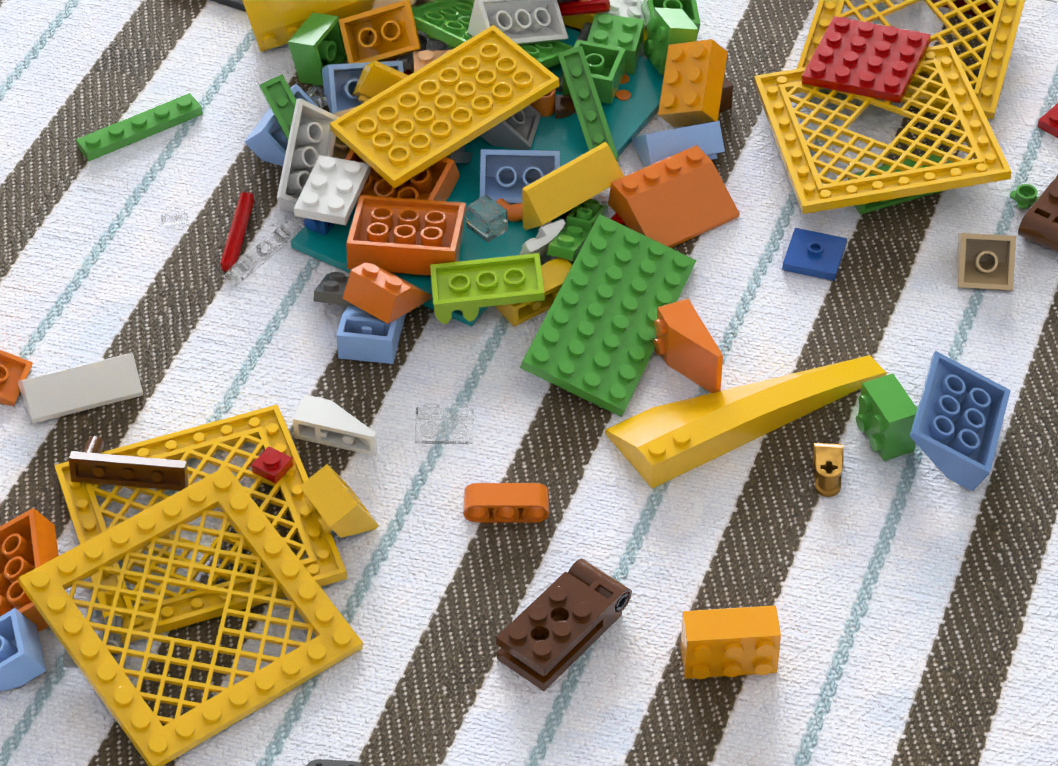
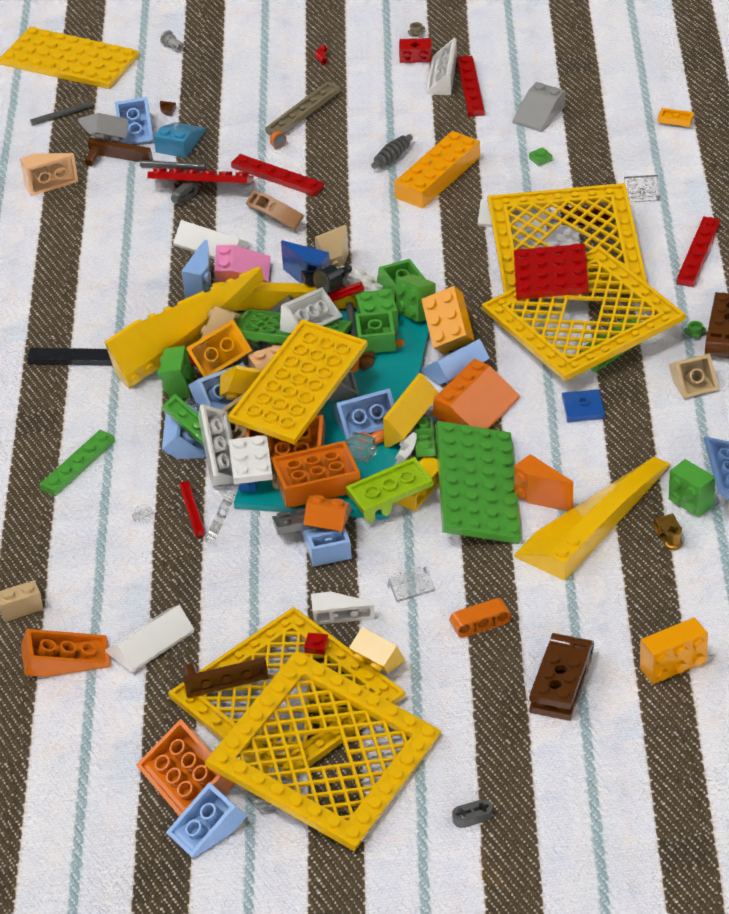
camera: 20 degrees left, 5 degrees down
(586, 99) = (385, 352): bright green plate -> none

